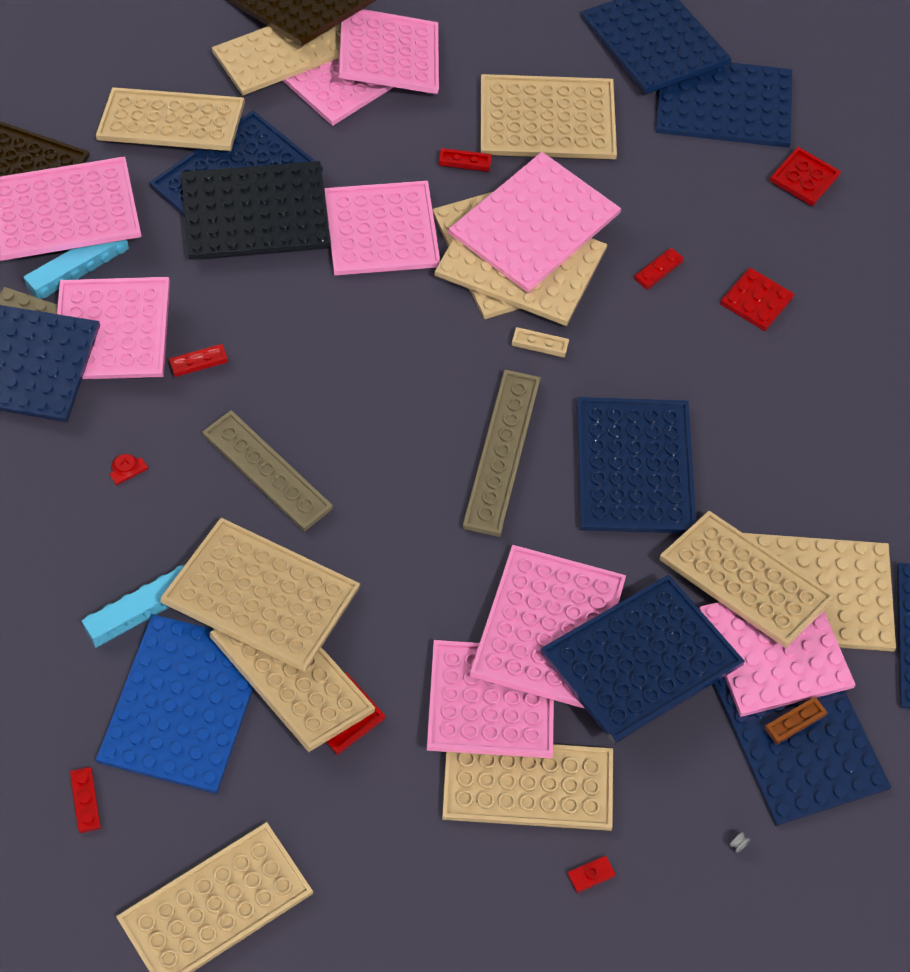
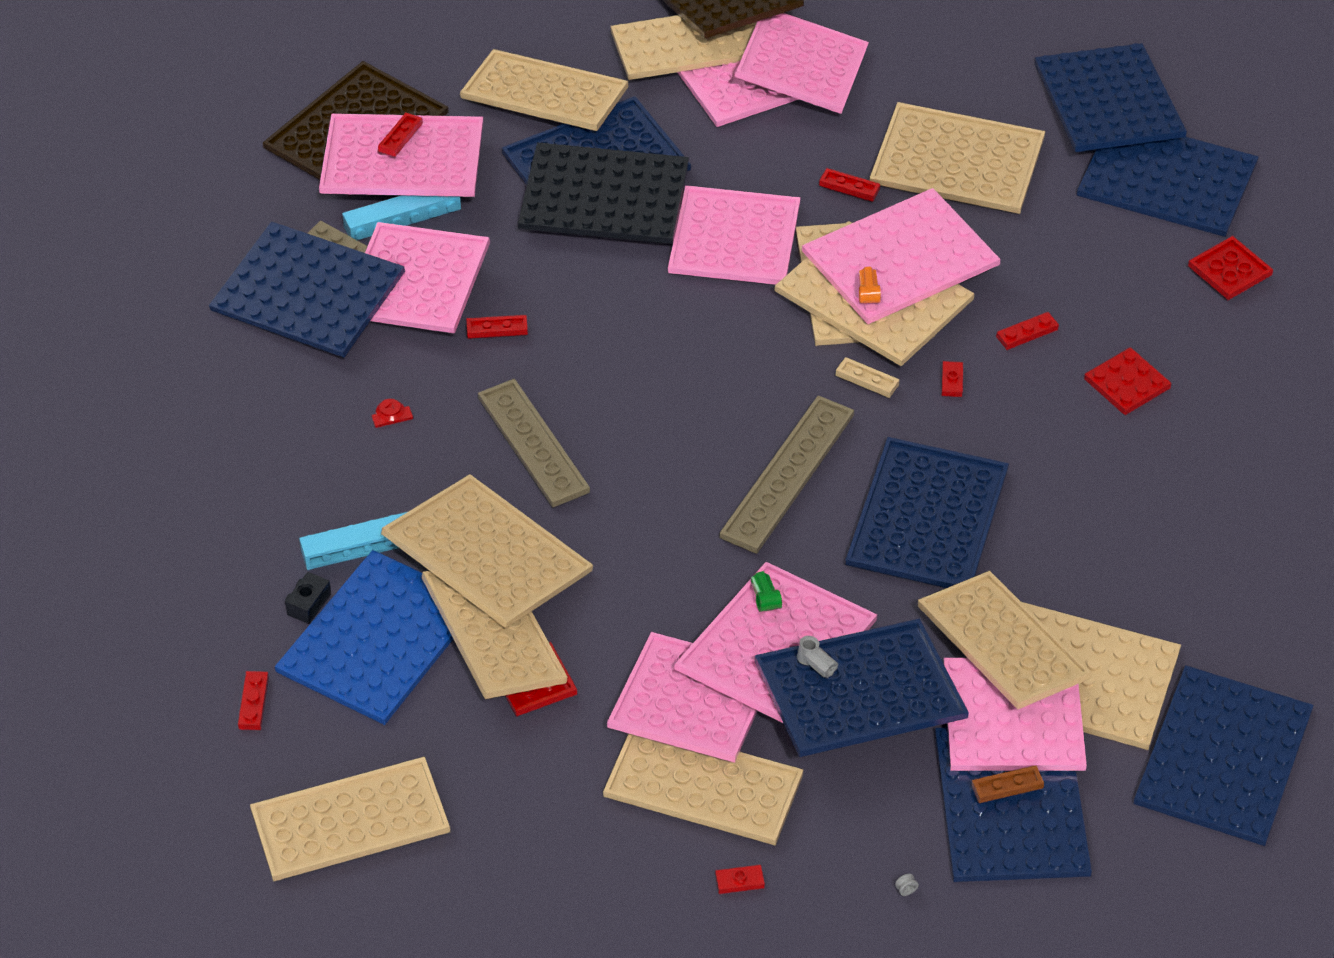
camera: 20 degrees right, 10 degrees down
(56, 189) = (400, 134): none -> red plate
(106, 690) = (308, 597): none -> black brick
(522, 261) = (868, 289): none -> orange piece
(528, 582) = (766, 596): none -> green piece
(597, 640) = (811, 654): none -> light grey piece
(612, 328) = (952, 379): none -> red plate

